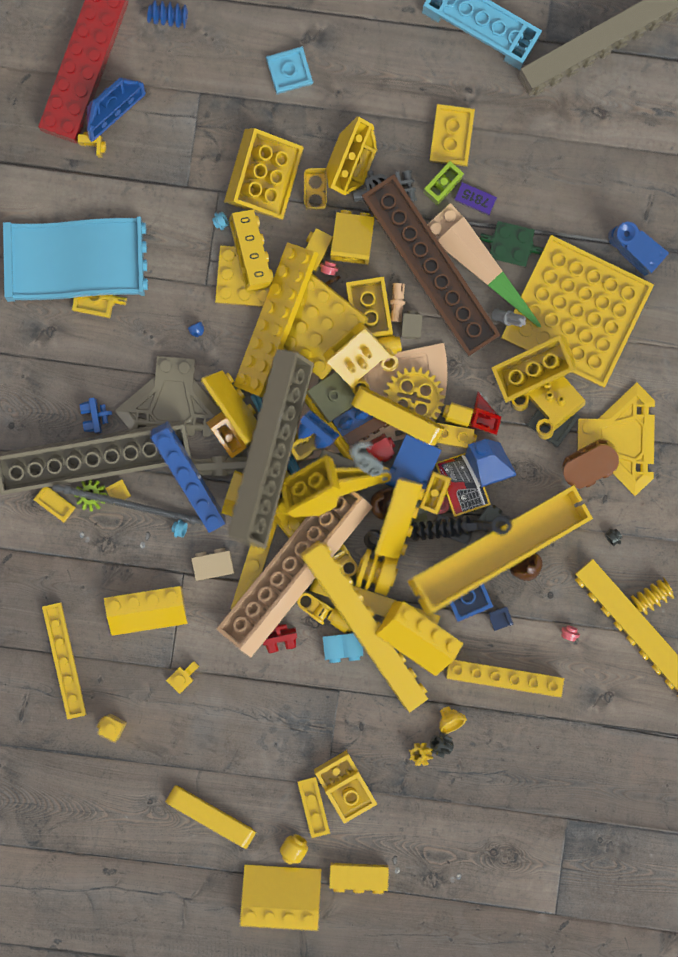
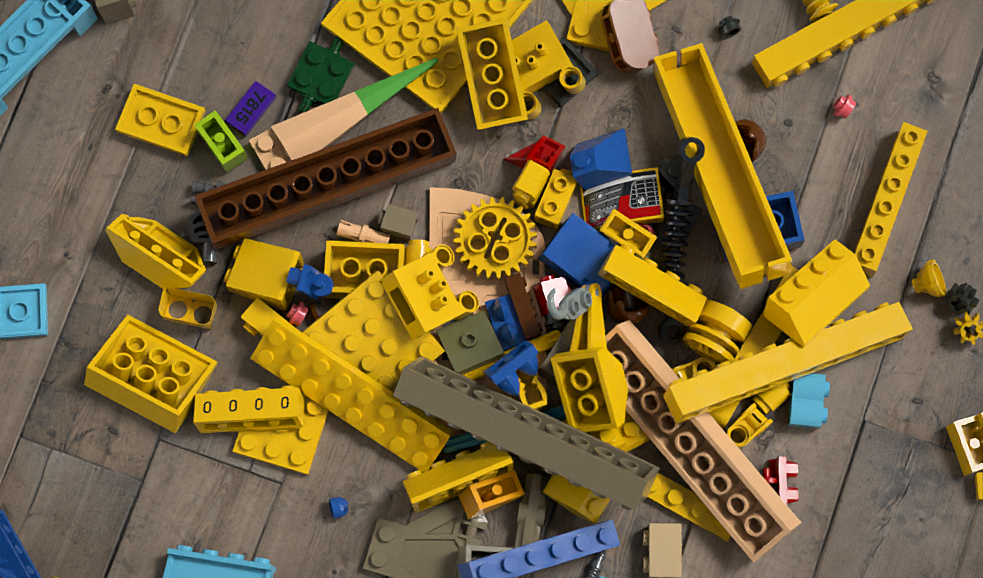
camera: 75 degrees left, 10 degrees down
(220, 220) = (199, 444): medium azure plate -> none
(348, 272) = (310, 282): none -> blue hips
(397, 416) = (515, 260): yellow beam -> none
(500, 618) = (807, 189): dark blue panel -> none
(508, 317) = (417, 95): light grey axle -> none

